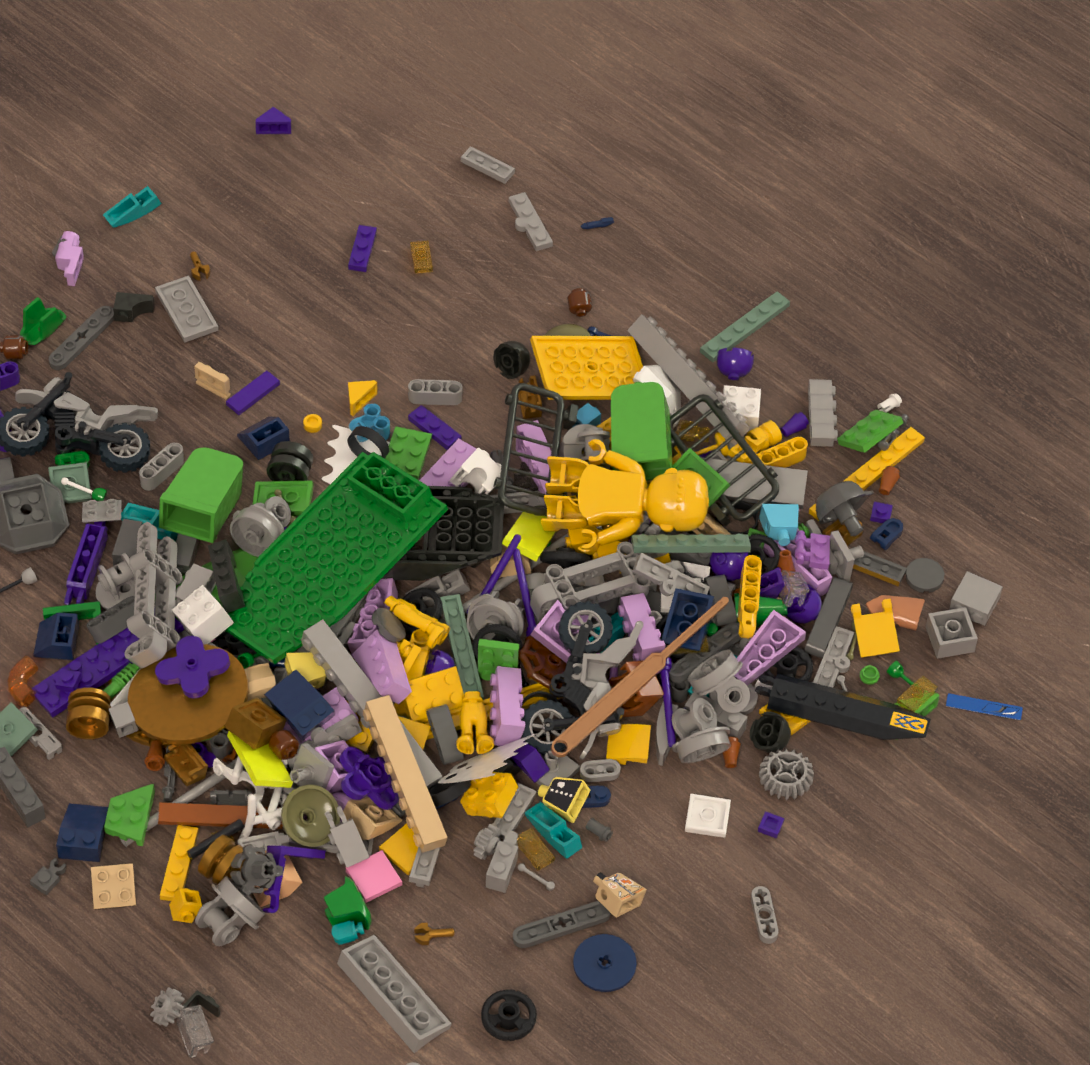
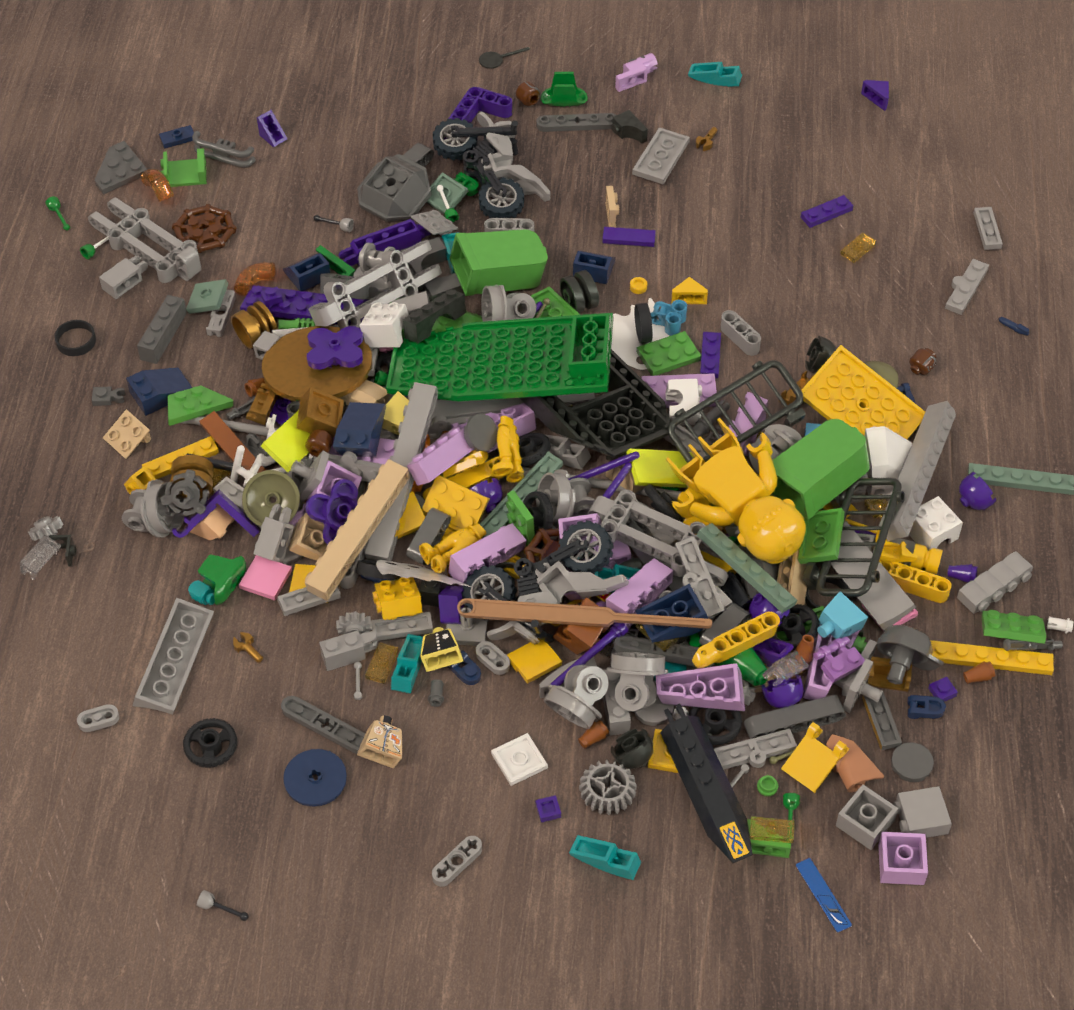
camera: 55 degrees right, 0 degrees up
(844, 816) = (606, 857): none -> teal slope
(1002, 636) = (903, 858): none -> lavender brick

